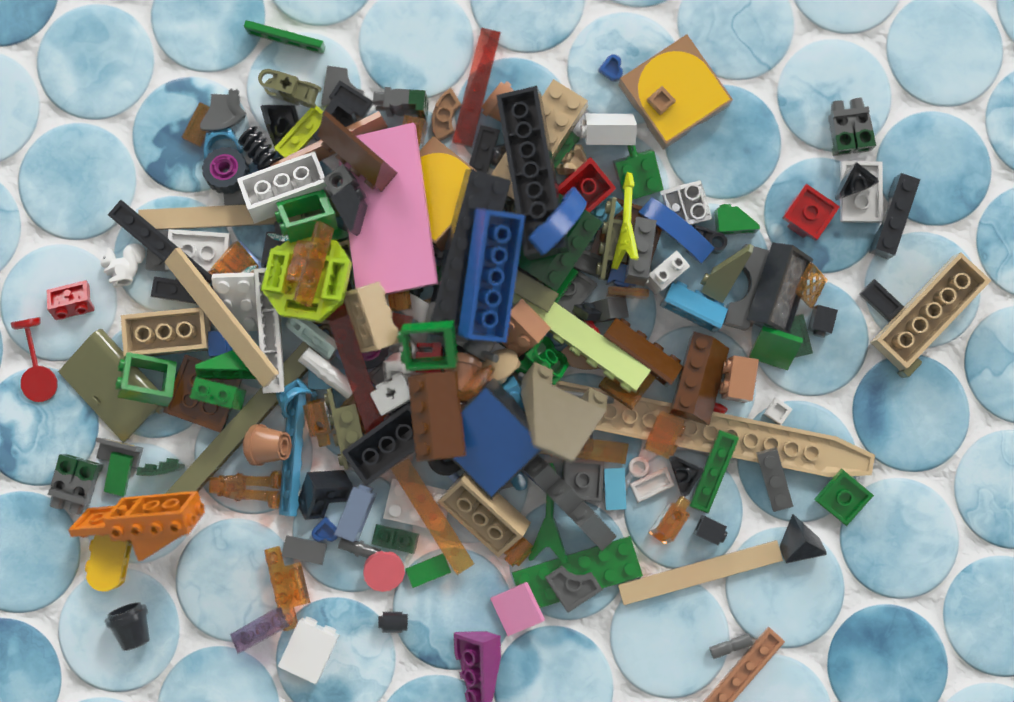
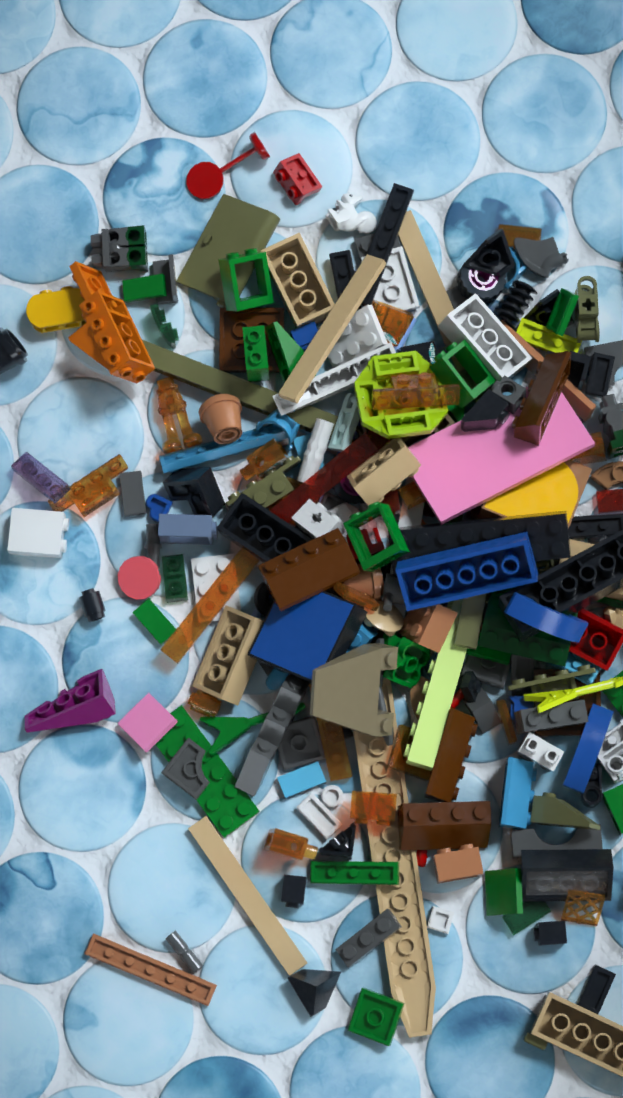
camera: 75 degrees right, 5 degrees down
(209, 151) = (492, 256): none -> black slope
(283, 109) = (562, 311): none -> green tile

